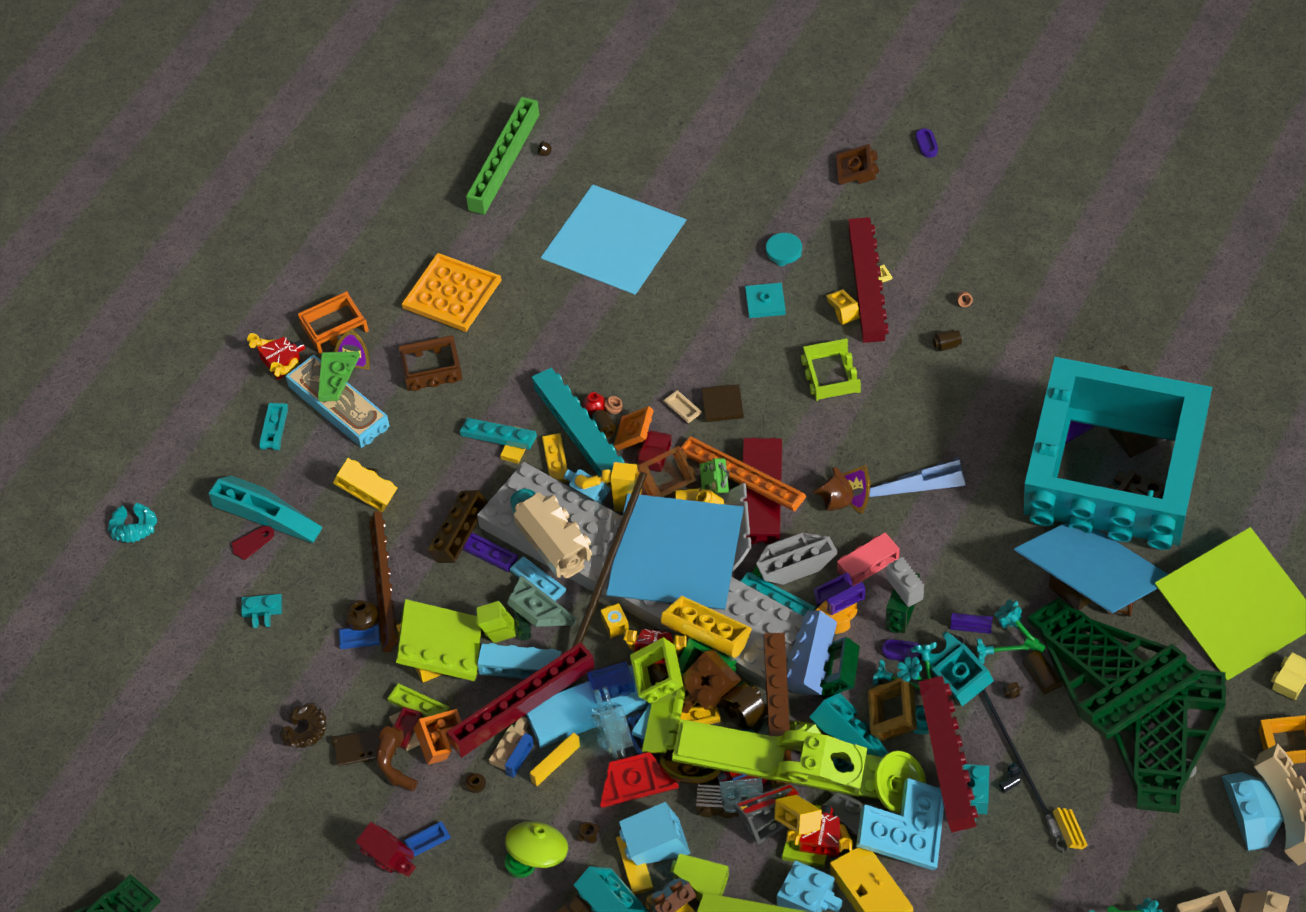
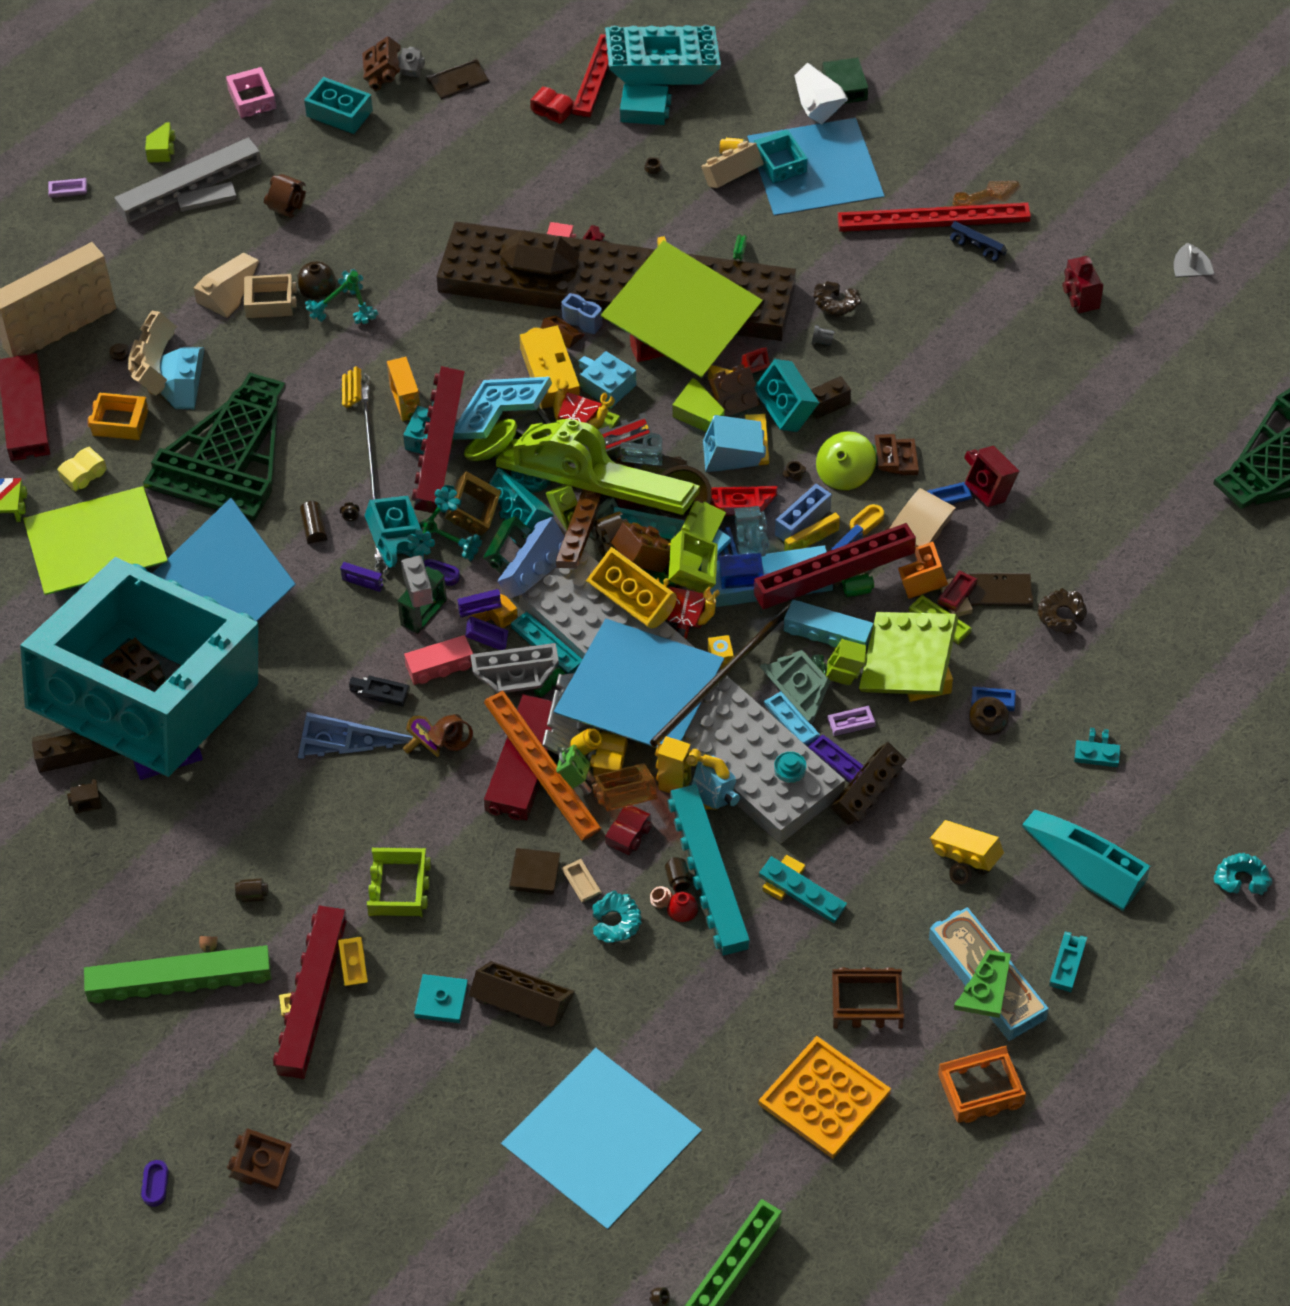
camera: 170 degrees left, 0 degrees up
(252, 542) = (1107, 825): dark red piece -> none
(277, 354) = (1054, 1049): torso -> none
(353, 342) = (960, 1034): shield -> none
(383, 586) = (961, 745): reddish brown plate -> none
(390, 739) = (976, 559): reddish brown piece -> none
(449, 791) = (925, 516): none -> tan slope
(485, 592) = (851, 724): none -> lavender tile
(487, 869) = (896, 455): none -> reddish brown slope
(505, 794) = (868, 518): none -> yellow tile
(552, 535) = (768, 710): tan brick -> none
(555, 456) = (742, 851): yellow tile -> none
(566, 772) = (803, 512): none -> medium blue brick
(633, 428) = (646, 853): orange plate -> none
(635, 369) = (626, 908): none -> teal piece
(702, 312) = (520, 994): none -> dark brown slope
(783, 248) = (394, 1061): teal tile -> none
(798, 814) = (596, 407): yellow brick -> none
(911, 524) = (380, 689): none -> black hinge
(975, 269) = (177, 974): none -> bright green brick
(1010, 616) = (329, 531): teal plant -> none
(1011, 823) = (403, 387): none -> light orange window
(1014, 778) = (383, 439): black arm -> none
(1118, 699) = (239, 460): dark green wing -> none

